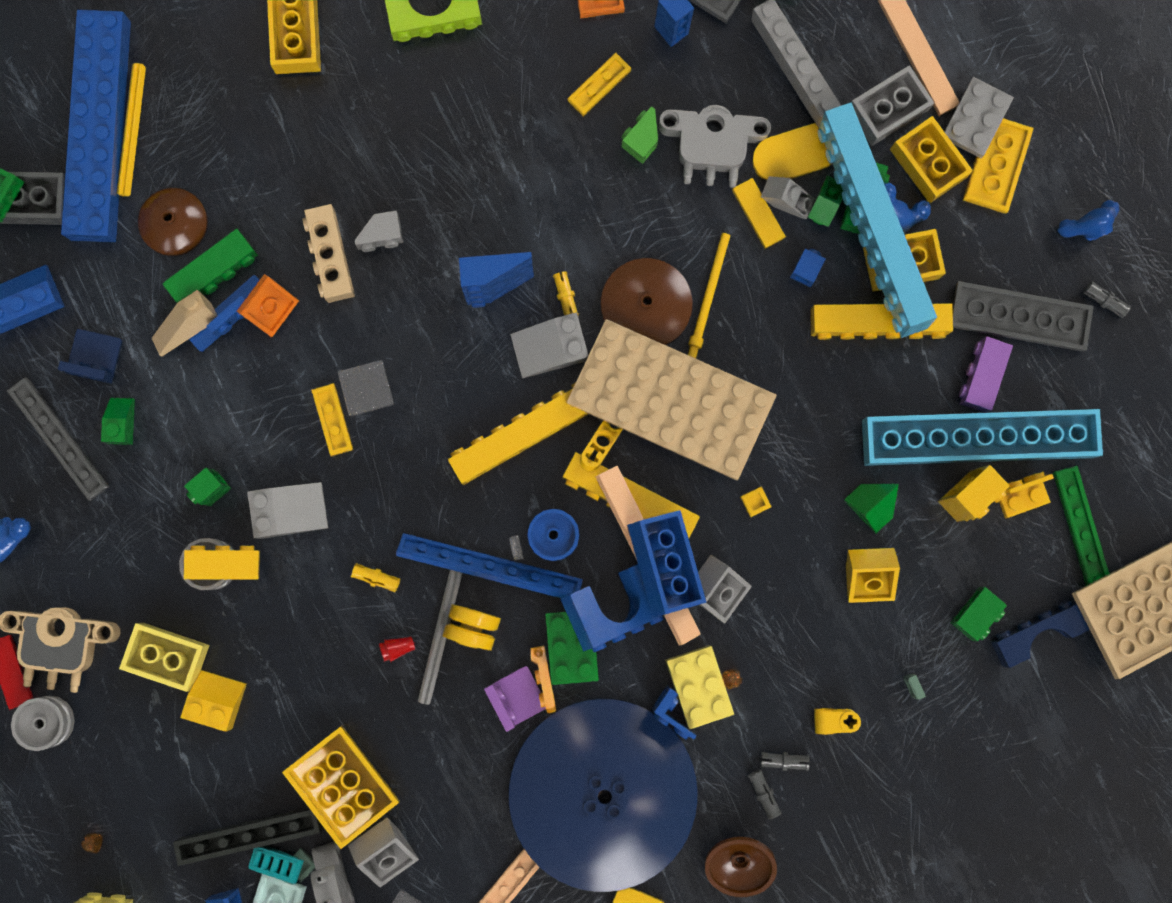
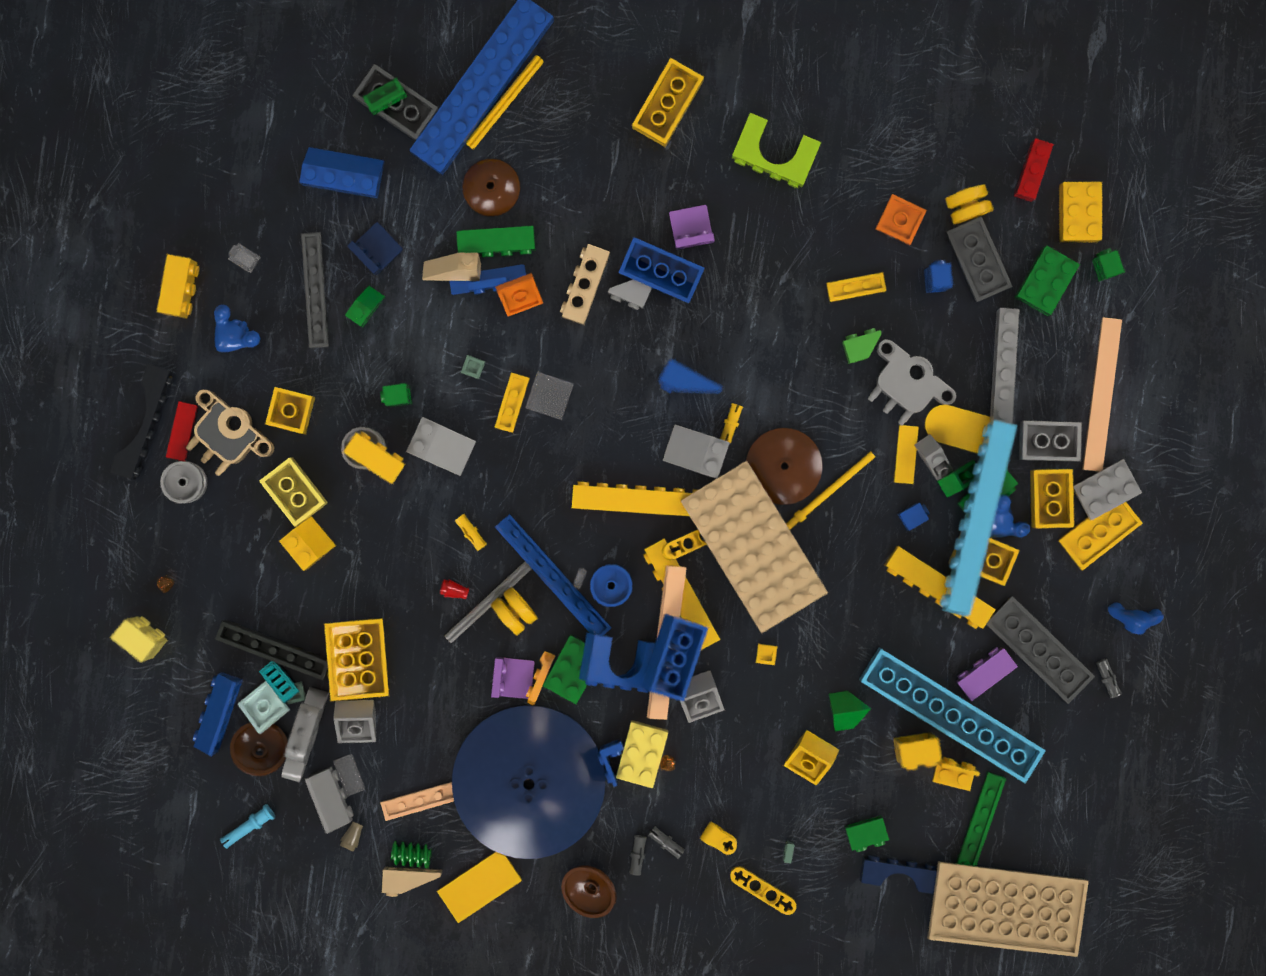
camera: 45 degrees right, 5 degrees up
(107, 575) = (290, 410): none -> yellow brick
(269, 410) = (473, 367): none -> sand green tile
(394, 187) = (661, 270): none -> blue slope
(398, 131) = (691, 227): none -> medium lavender bracket
(915, 743) = (764, 888): none -> yellow beam

